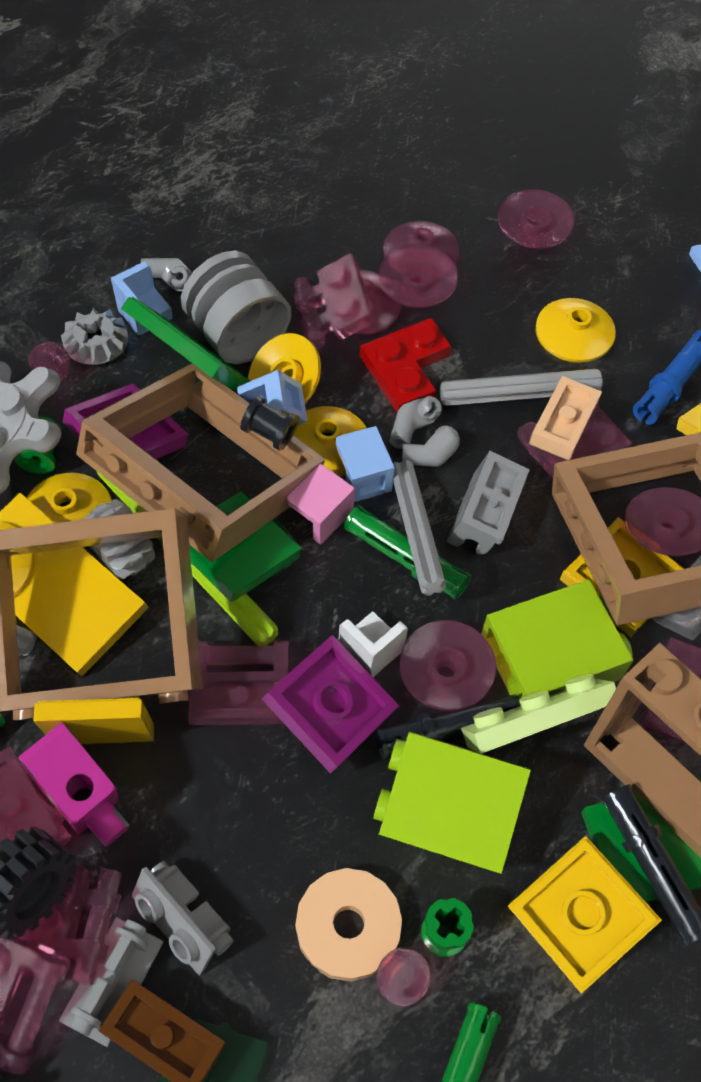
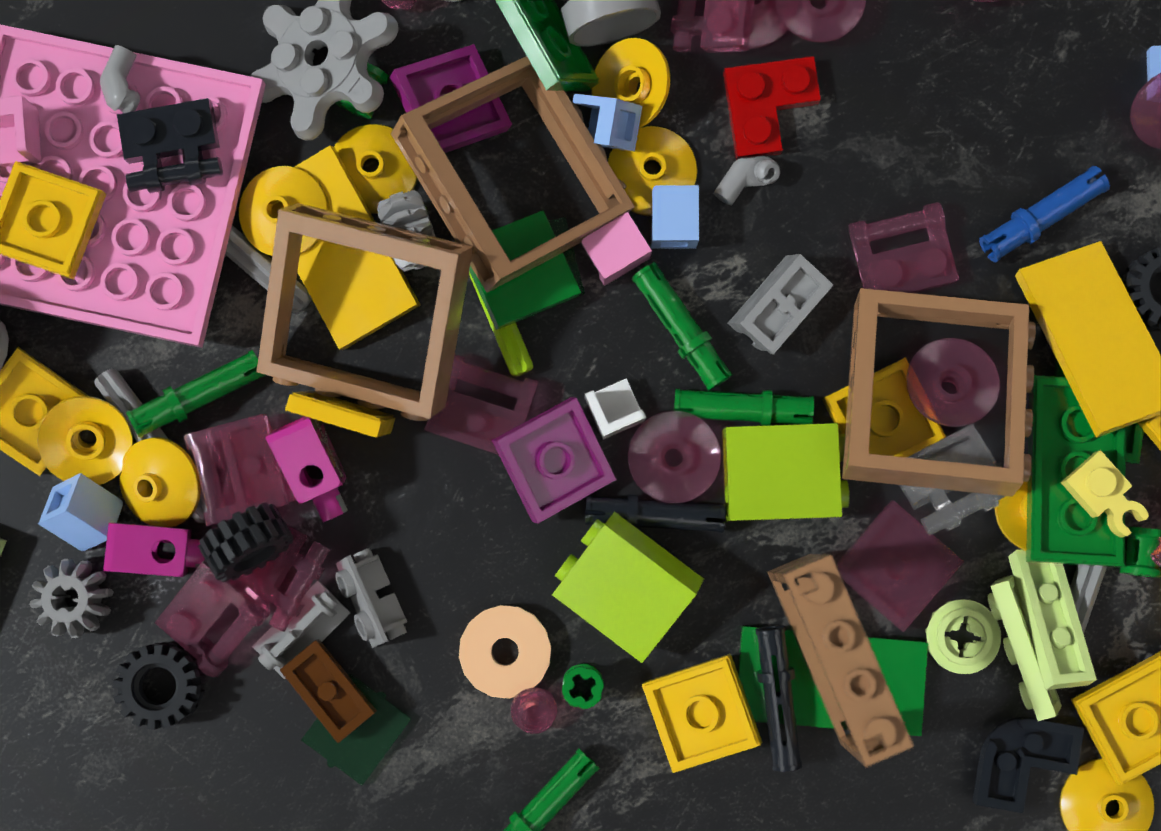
camera: 25 degrees right, 25 degrees up
(269, 422) = (589, 158): black bush -> none
(418, 529) = (698, 309): light grey axle -> none
(435, 451) = (754, 221): light grey arm -> none
(480, 604) = (746, 407): none -> green pin
(513, 387) = (875, 172): light grey axle -> none
(537, 713) = (732, 539): yellowish green plate -> none
(565, 418) = (896, 237): light nougat plate -> none
(575, 330) = (954, 129): yellow dish -> none

